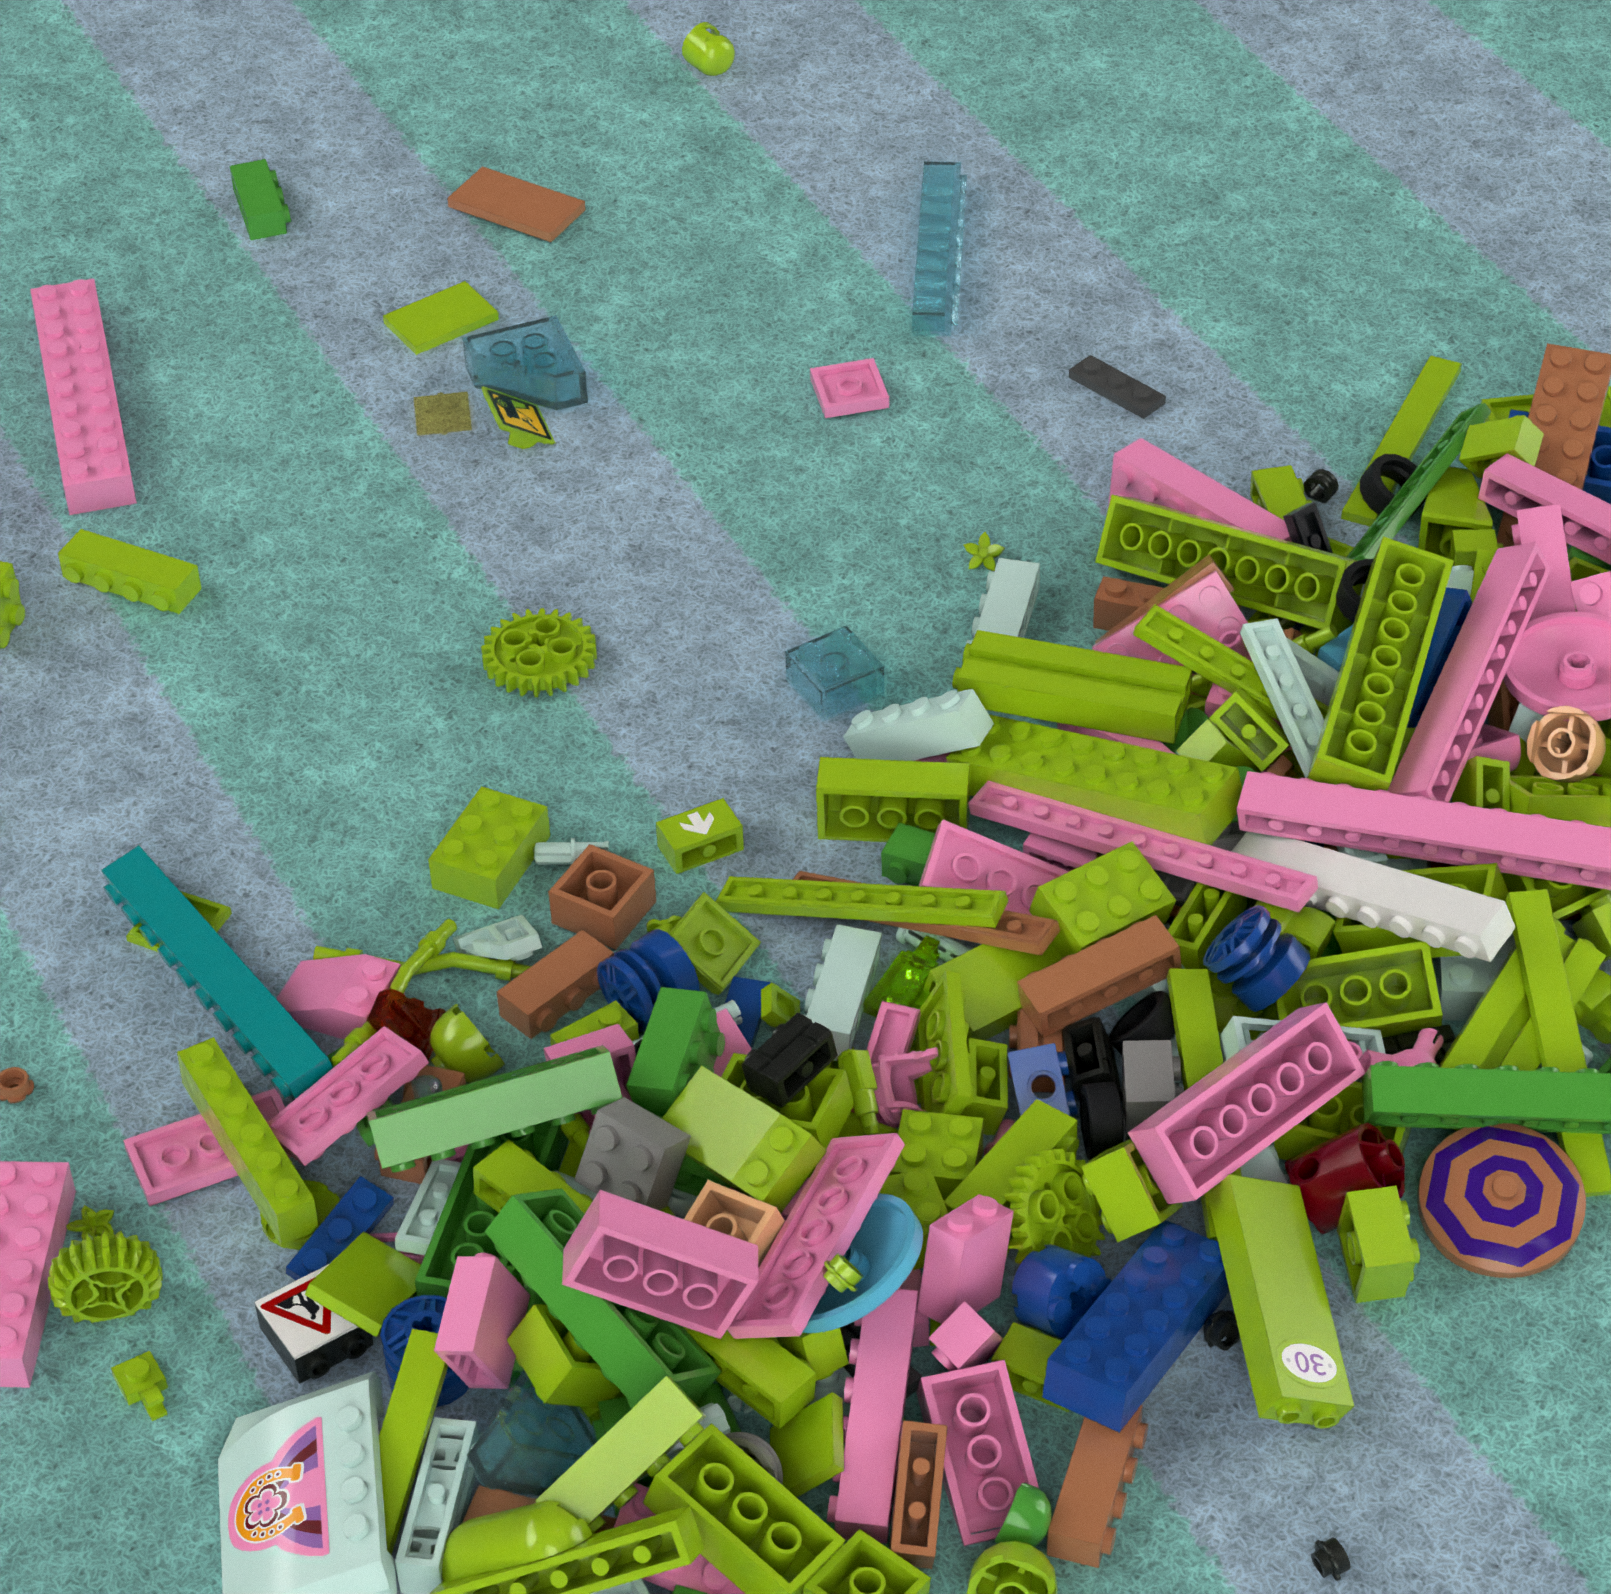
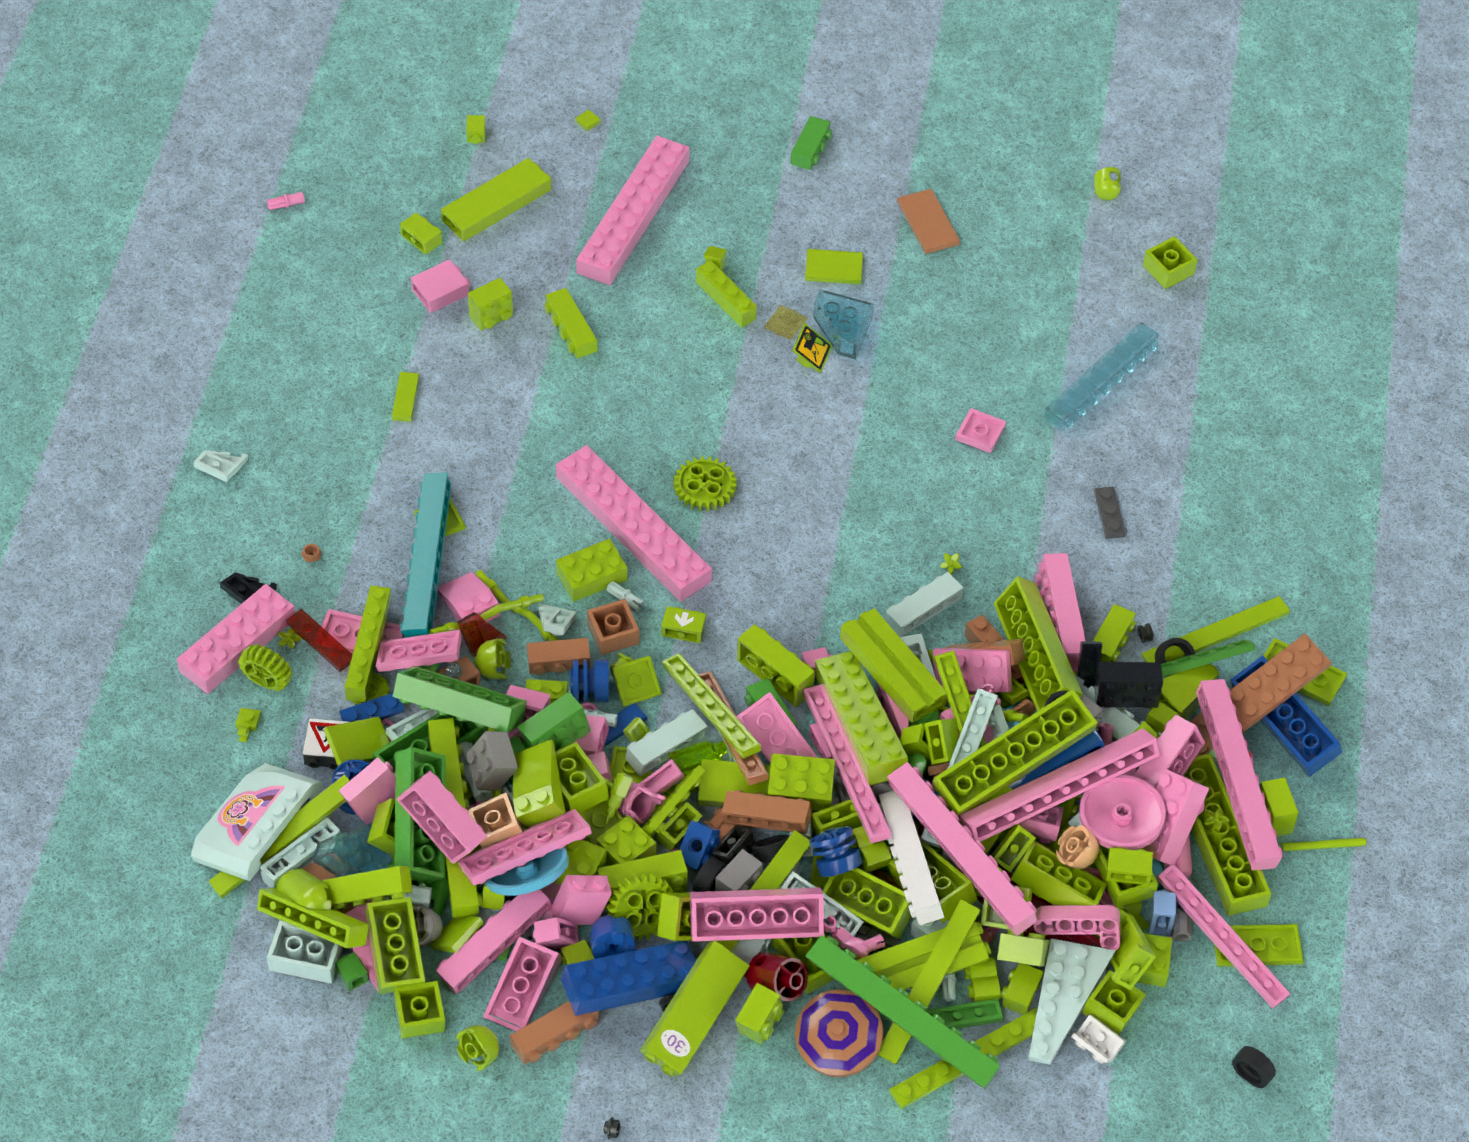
camera: 35 degrees right, 10 degrees up
(156, 1187) = (320, 640): none -> clear red tile
(266, 388) = (716, 255): none -> lime panel
(326, 419) = (726, 293): none -> lime brick
(491, 751) = (634, 523): none -> bright pink brick
(789, 1059) = (585, 762): pearl dark grey brick -> none
(834, 673) = (819, 582): clear light blue brick -> none
(842, 1273) = (510, 871): lime plate -> none
(884, 87) = (1170, 262): none -> lime brick
(918, 1492) = (474, 983): nougat brick -> none
(920, 728) = (814, 638): light aqua brick -> none
(1027, 1518) = (506, 1023): bright green hair -> none
(1414, 511) = (1128, 684): none -> black brick
(1494, 439) = (1234, 671): lime brick -> none

